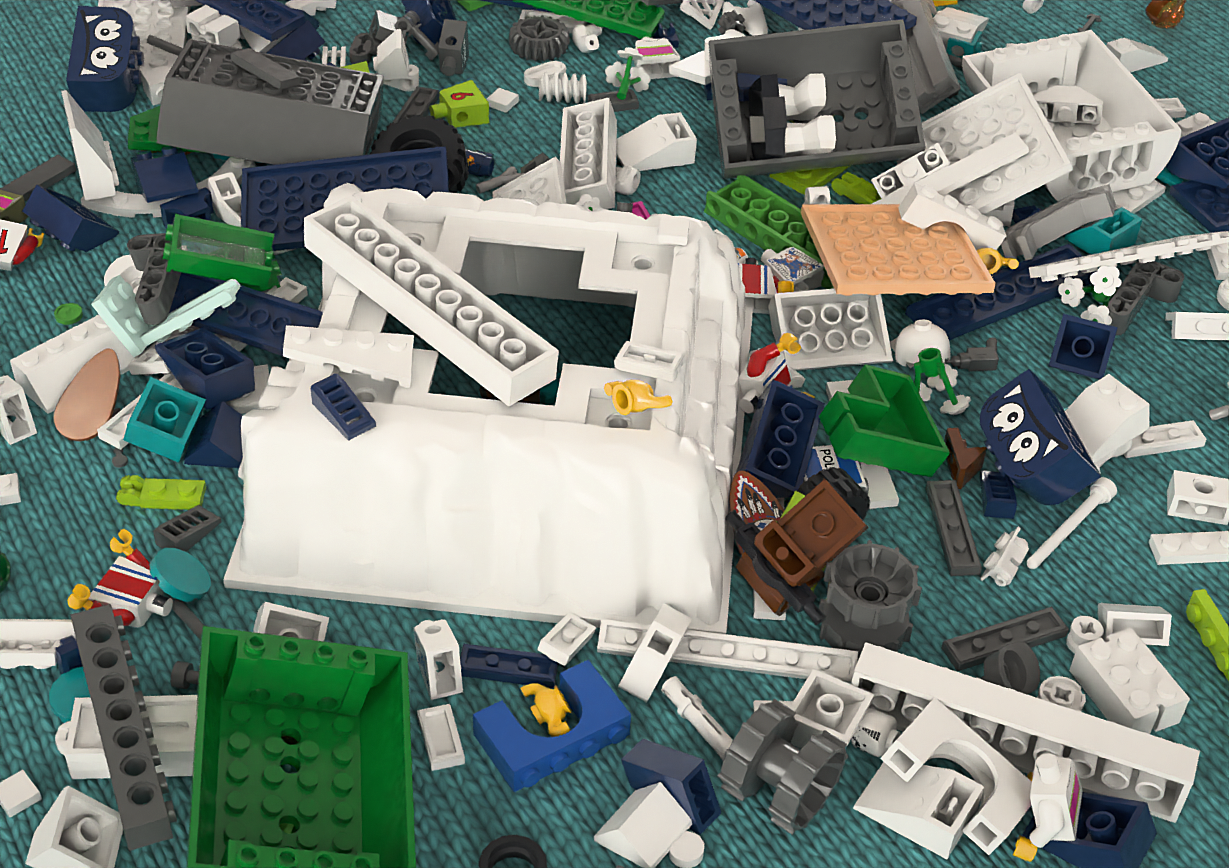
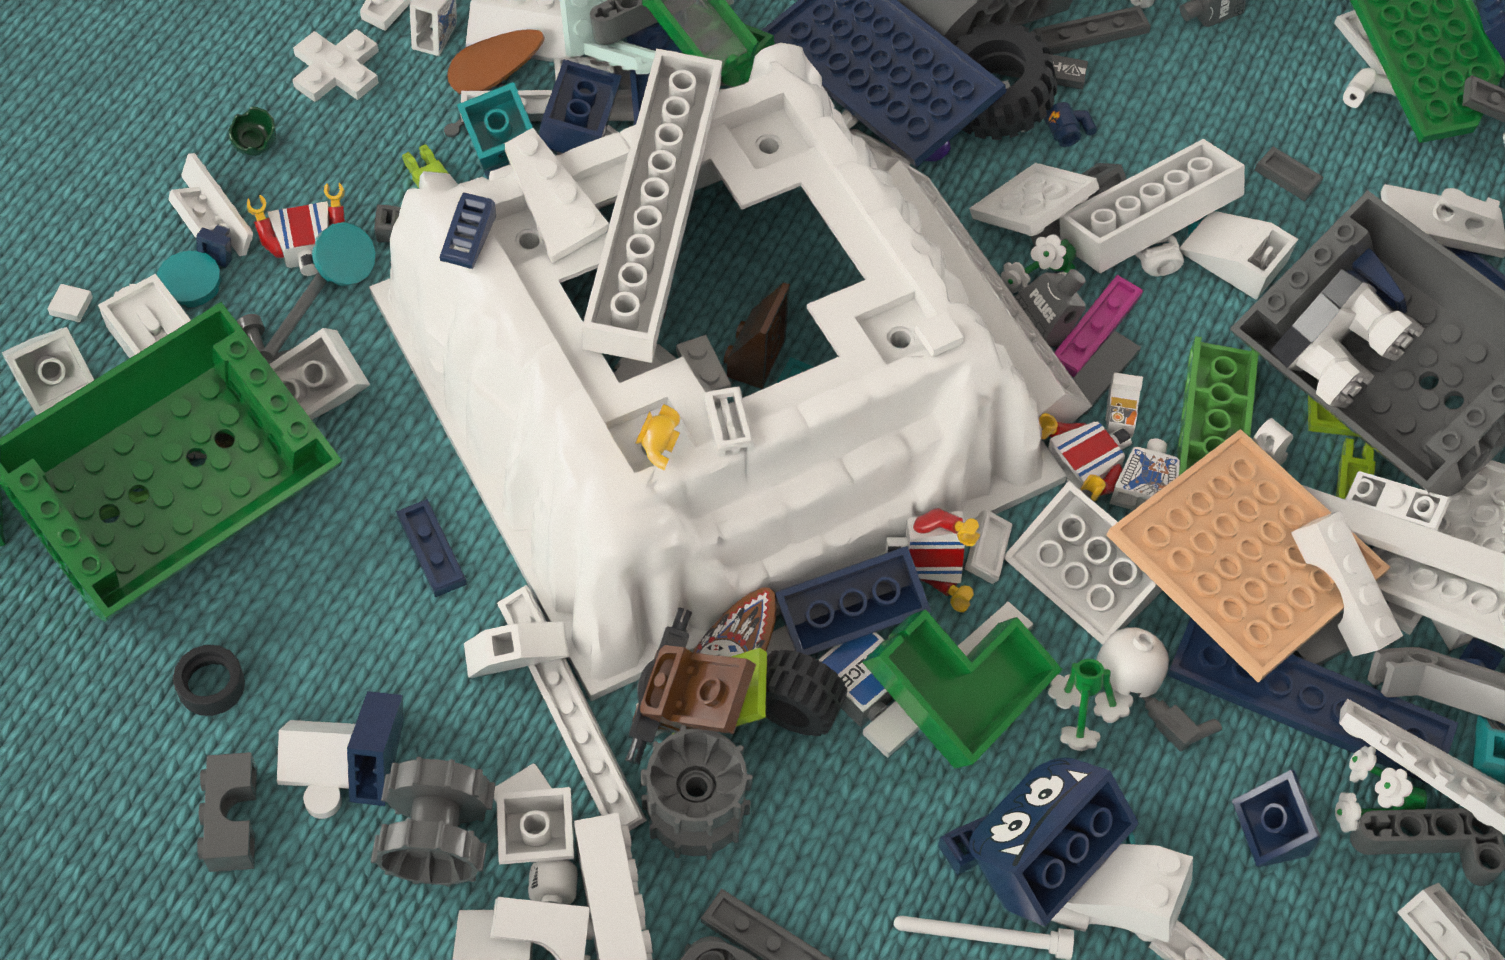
camera: 55 degrees right, 15 degrees up
(122, 727) = (143, 310): dark grey brick -> none
(437, 643) = (387, 487): white torso -> none
(440, 737) = (318, 545): white tile -> none
(462, 105) = (1141, 57): lime torso -> none
(503, 100) = (1192, 83): white tile -> none
(506, 177) = (1066, 160): light grey piece -> none
(528, 757) = (407, 653): blue arch -> none
(533, 74) = (1274, 91): white tile -> none
(539, 38) = (1329, 50): dark grey gear -> none
(549, 707) = (398, 606): yellow piece -> none
(562, 87) = (1254, 119): white piece -> none
(566, 638) = (483, 572): white plate -> none
(619, 74) = (1330, 151): white plant -> none
(656, 56) = (1392, 161): white torso -> none
(668, 34) = (1449, 154): dark blue tile -> none
(691, 707) = (479, 715): white pin -> none
(953, 528) = (893, 823): dark grey tile -> none
(962, 461) = (991, 784): reddish brown slope -> none
(994, 260) = (1336, 654): yellow piece -> none
(1001, 563) = (867, 894): white hinge -> none

